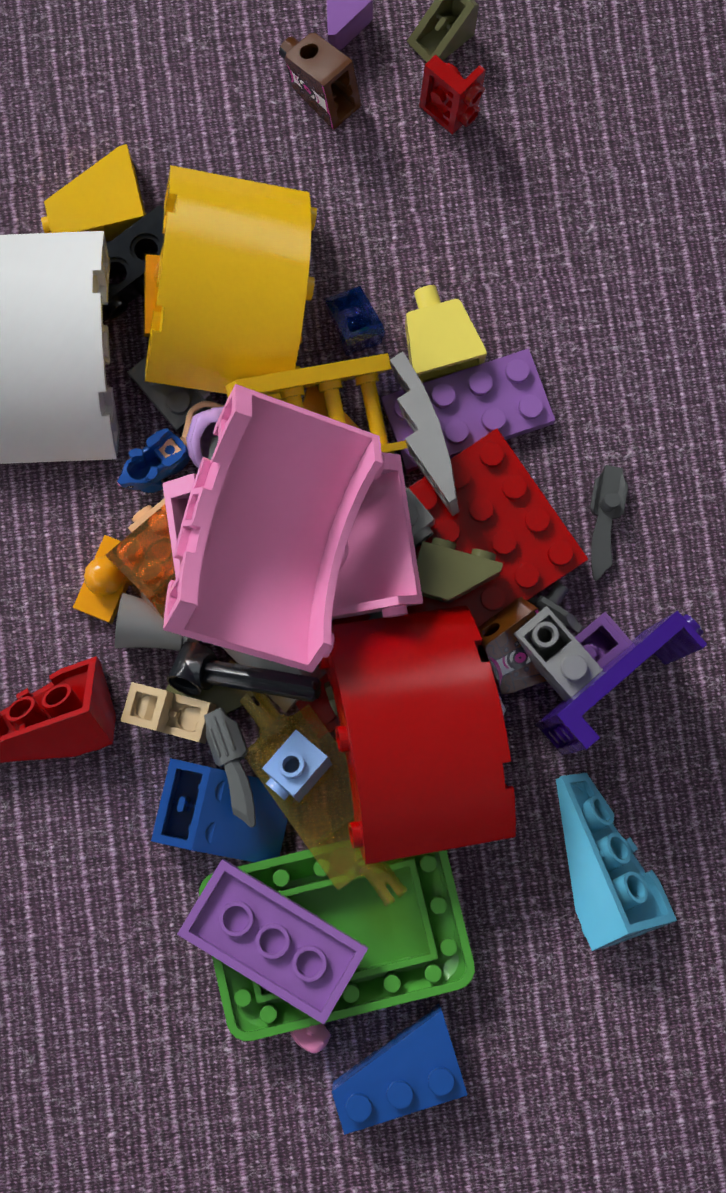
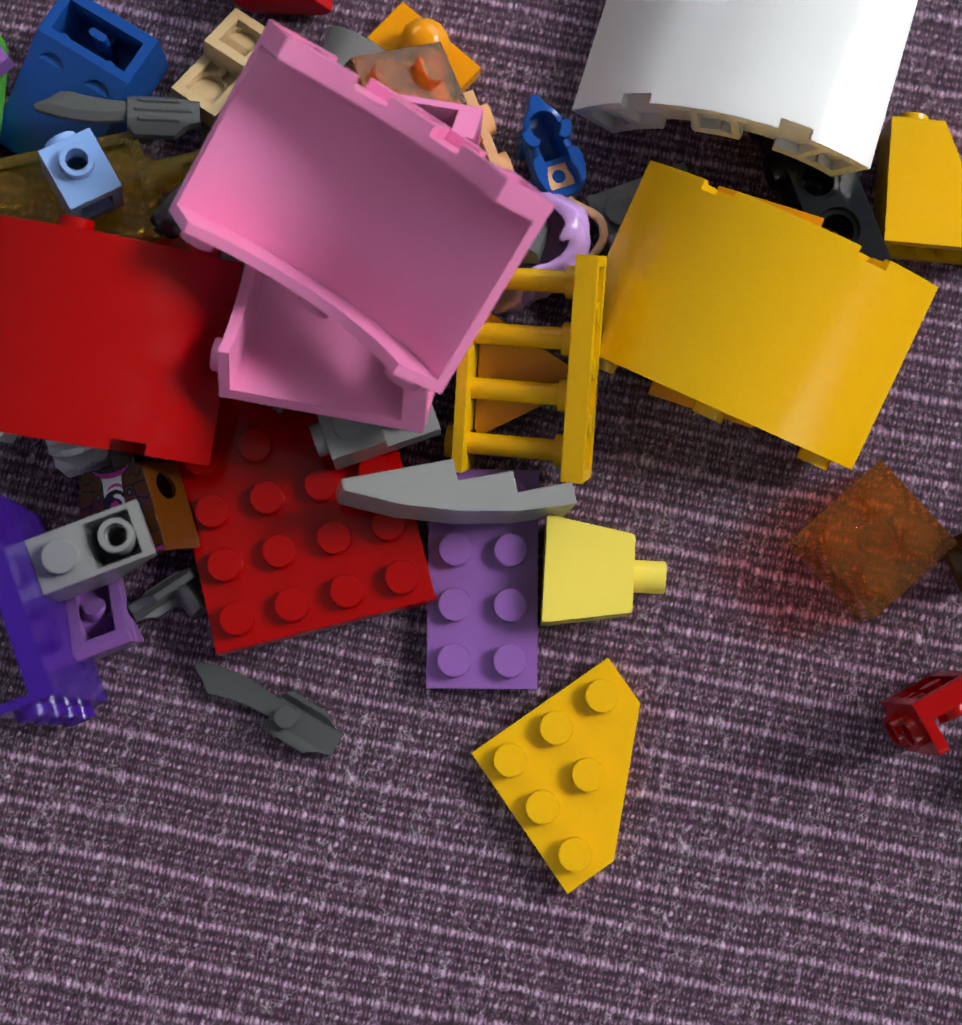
camera: 105 degrees right, 0 degrees up
(352, 165) = (872, 542): none -> clear orange brick
(355, 320) = (654, 467): clear blue slope -> none
(451, 573) = (257, 458): olive slope -> none
(572, 312) = (569, 771): none -> yellow plate

